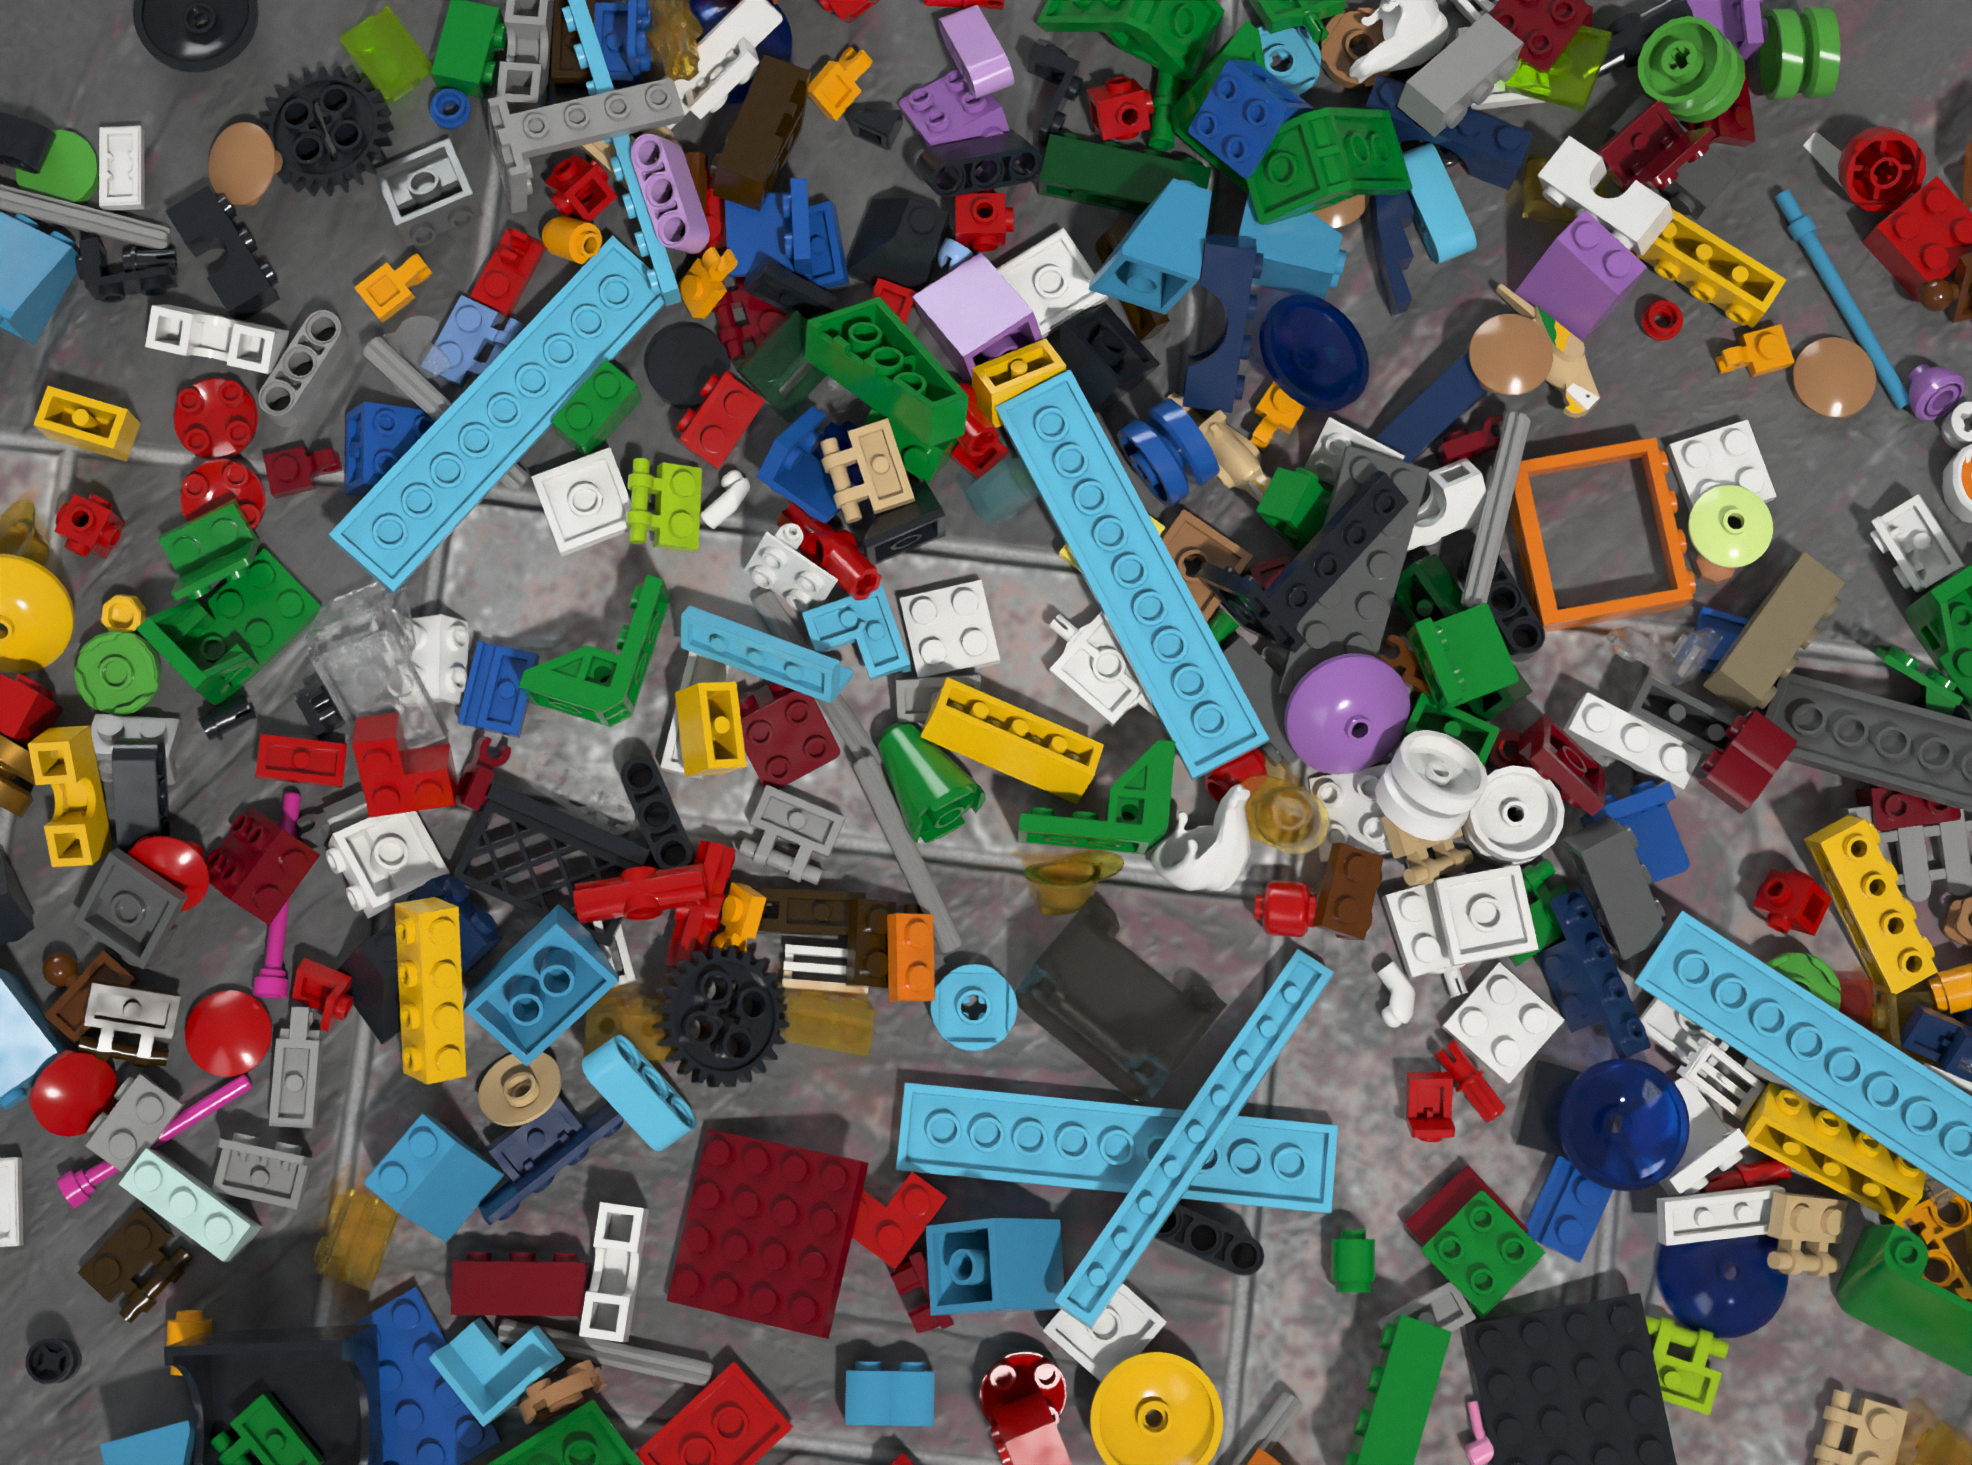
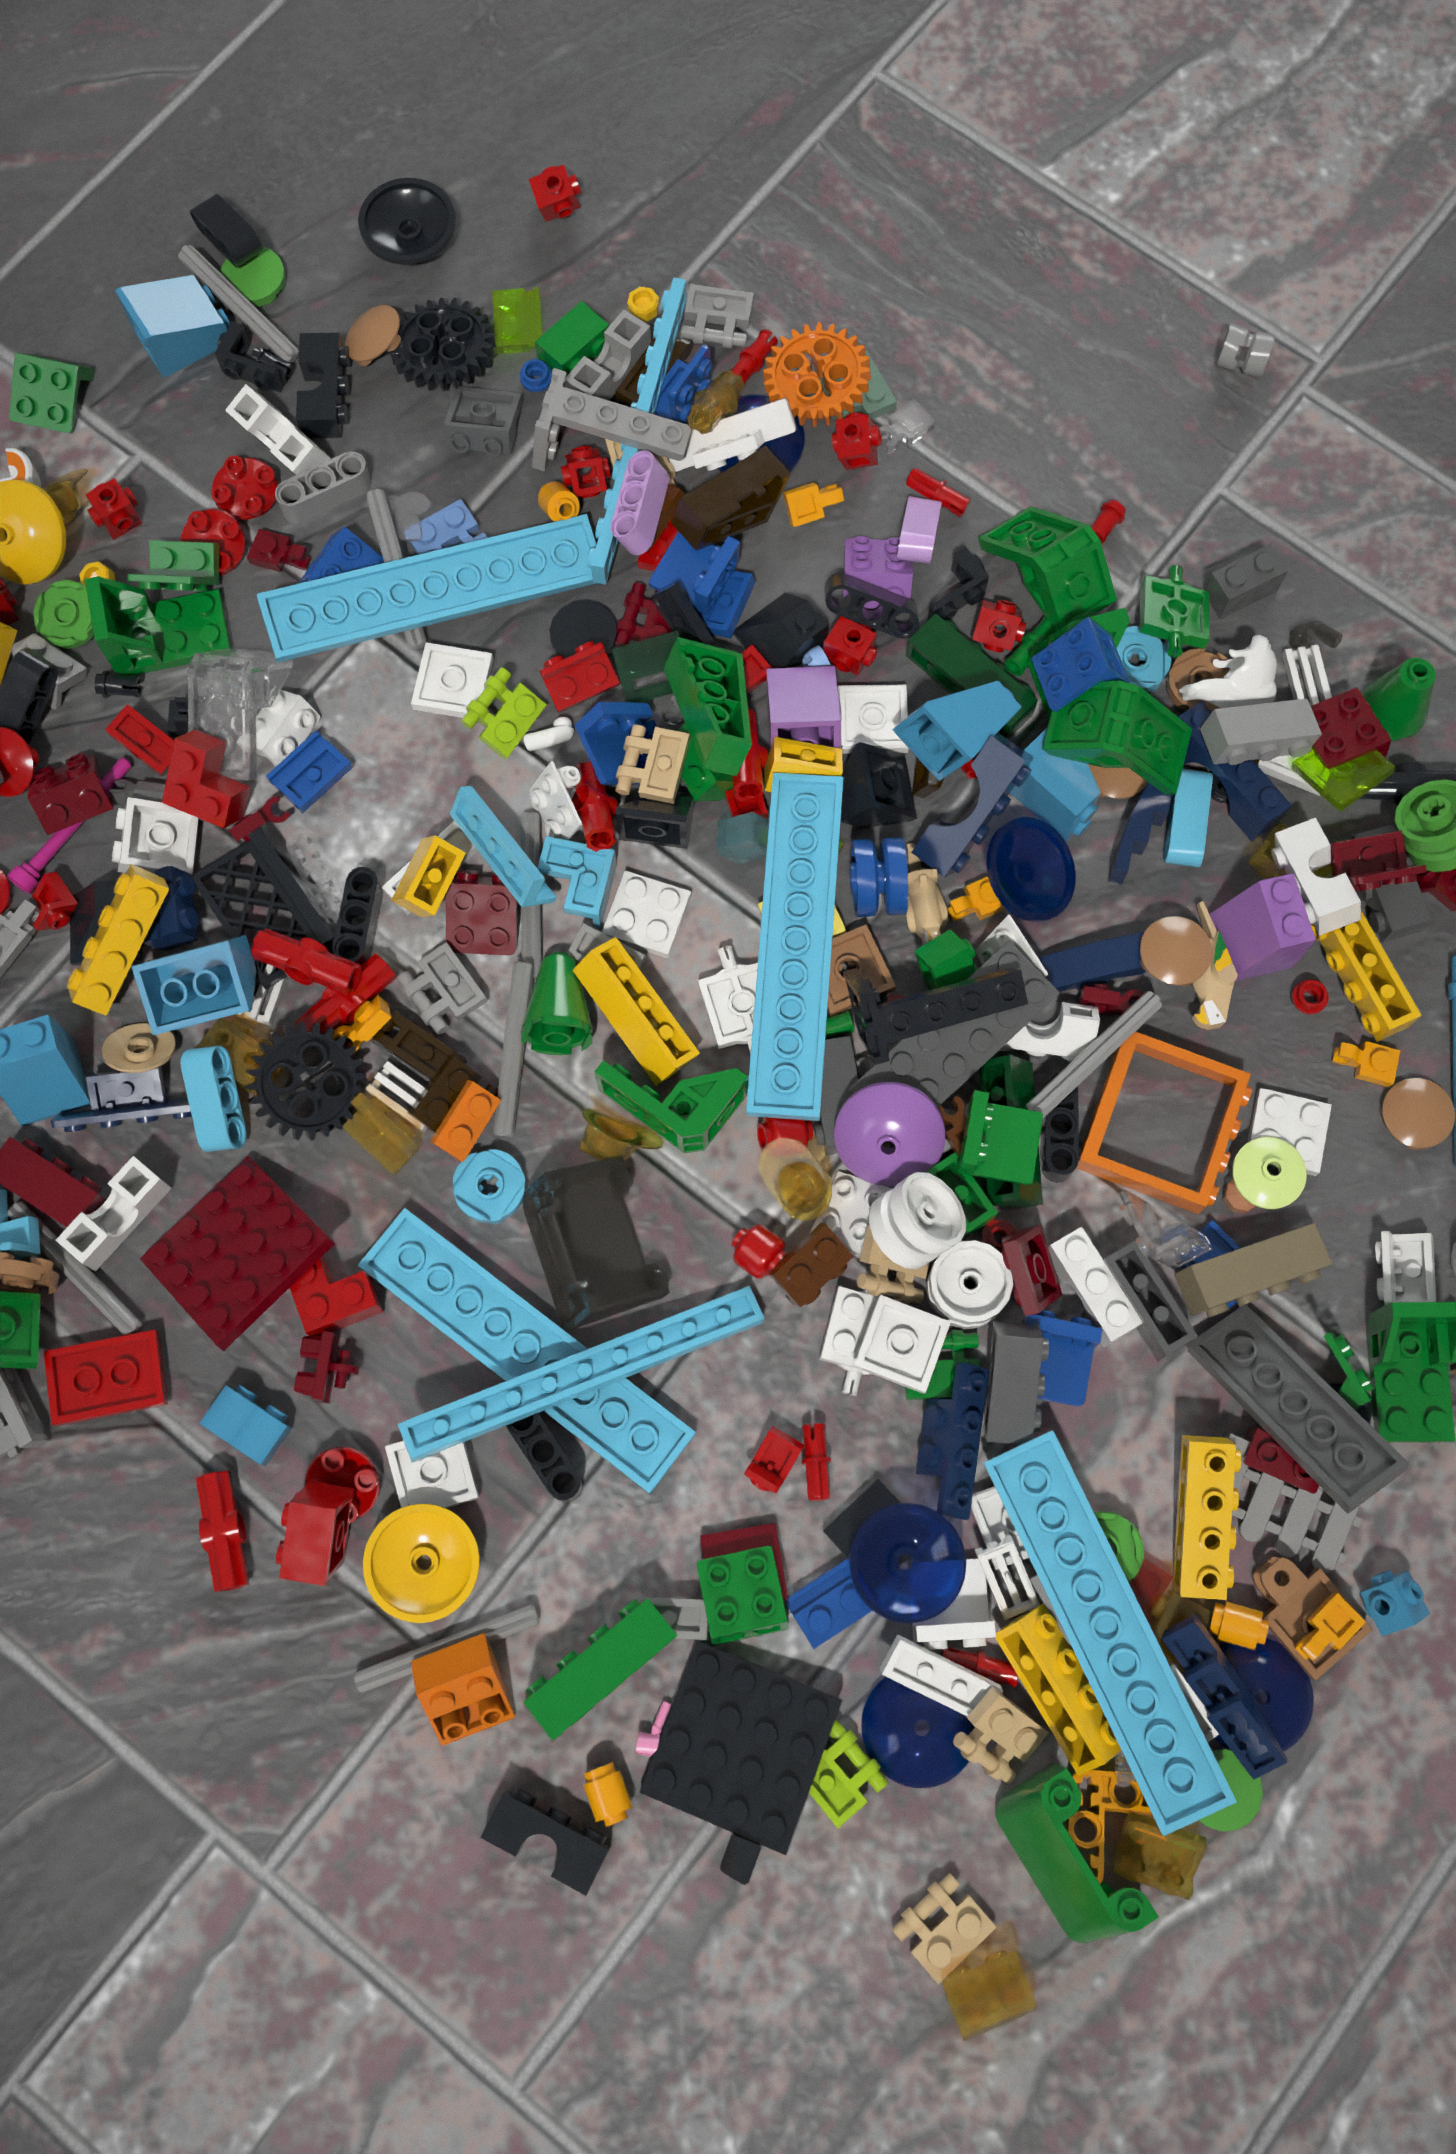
camera: 35 degrees right, 5 degrees down
(87, 423) = (156, 441): yellow brick -> none
(121, 168) = (294, 296): white plate -> none
(388, 290) = (414, 468): light orange plate -> none
(508, 272) = (503, 503): red plate -> none
(574, 679) = (378, 806): green bracket -> none
(596, 409) = (500, 622): green brick -> none
(703, 284) = (627, 581): light orange plate -> none
(877, 126) = (820, 546): black slope -> none
(994, 1266) = (378, 1374): dark azure slope -> none
(1208, 854) = (729, 1179): white piece -> none
(1353, 1262) = (643, 1540): green brick -> none
(1401, 998) = (804, 1369): white arm -> none
(1502, 1023) = (868, 1435): white plate -> none
(1747, 761) = (1169, 1346): dark red brick -> none
(1791, 902) = (1144, 1470): red brick -> none

